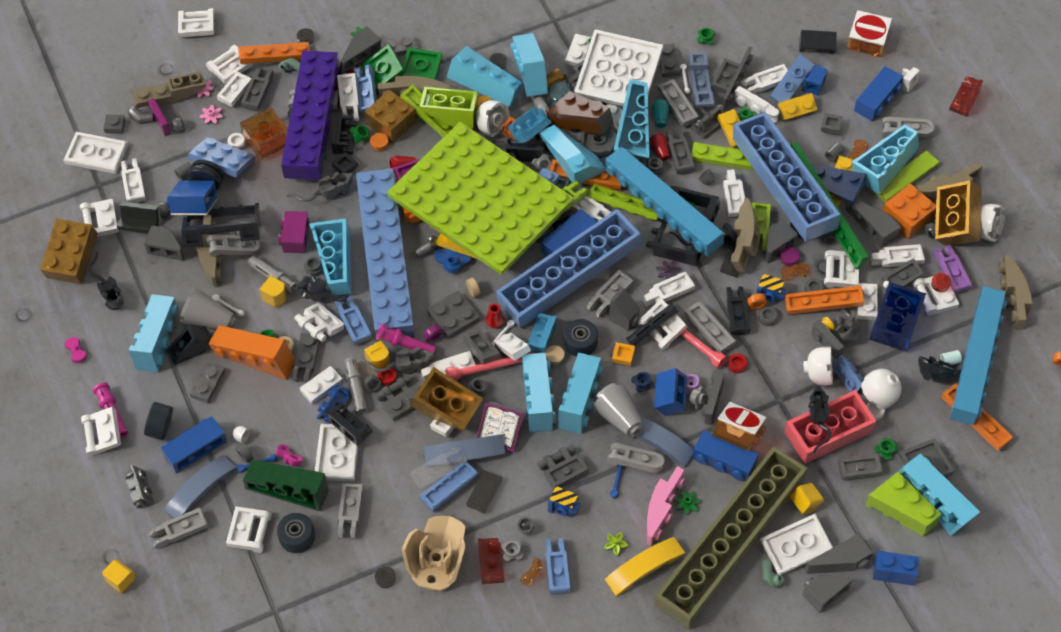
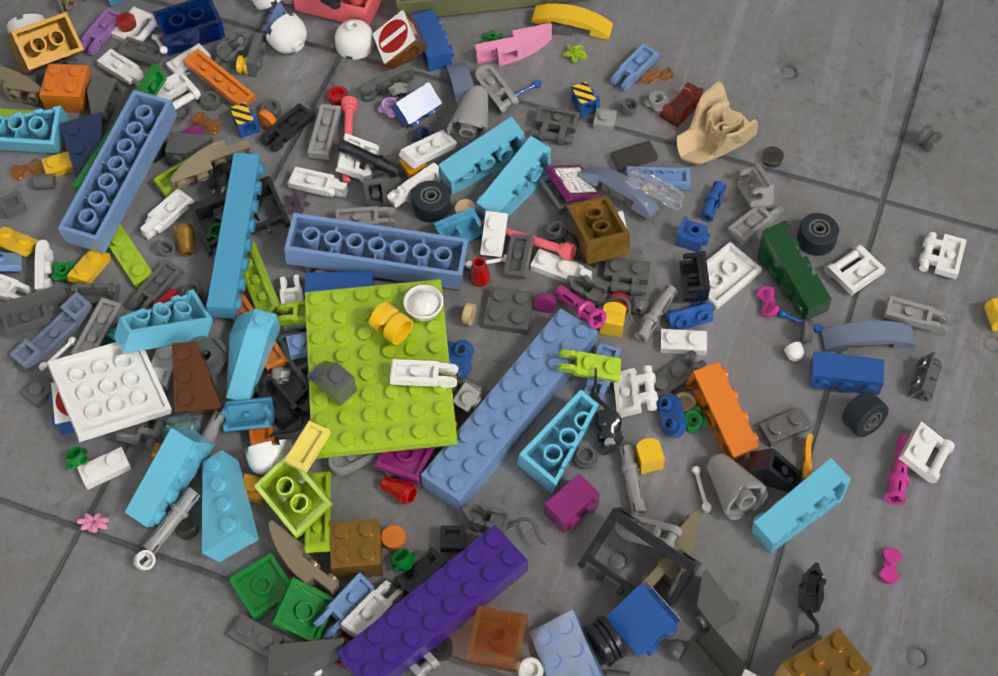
camera: 135 degrees left, 0 degrees up
(174, 370) = (807, 463): none -> light orange piece
(188, 596) = (949, 257): none -> white plate
(283, 328) = (671, 411): none -> blue plate
(357, 303) = (607, 367): none -> lime hinge
(369, 530) = (757, 188): none -> light grey hinge
(382, 460) = (692, 235): none -> blue brick
(394, 501) = (712, 201): none -> blue pin
(415, 233) = (467, 396): none -> light grey brick
(442, 200) = (422, 373): none -> white hinge
(464, 118) = (307, 446): none -> light yellow tile
(489, 154) = (333, 381): none -> dark grey slope
(489, 239) = (423, 302): none -> white hat
(492, 208) = (392, 324): none -> yellow wheel
(494, 28) = (148, 564): none -> white hinge
(505, 54) = (170, 522): none -> light grey pin
(534, 504) = (605, 119): none -> light grey plate
(551, 24) = (93, 523): none -> bright pink plant
(604, 337) = (404, 192): none -> white hinge
(622, 361) = (427, 149): none -> white plate
(702, 187) = (184, 238): none -> pearl gold cone
(779, 409) = (354, 39): none -> white cylinder

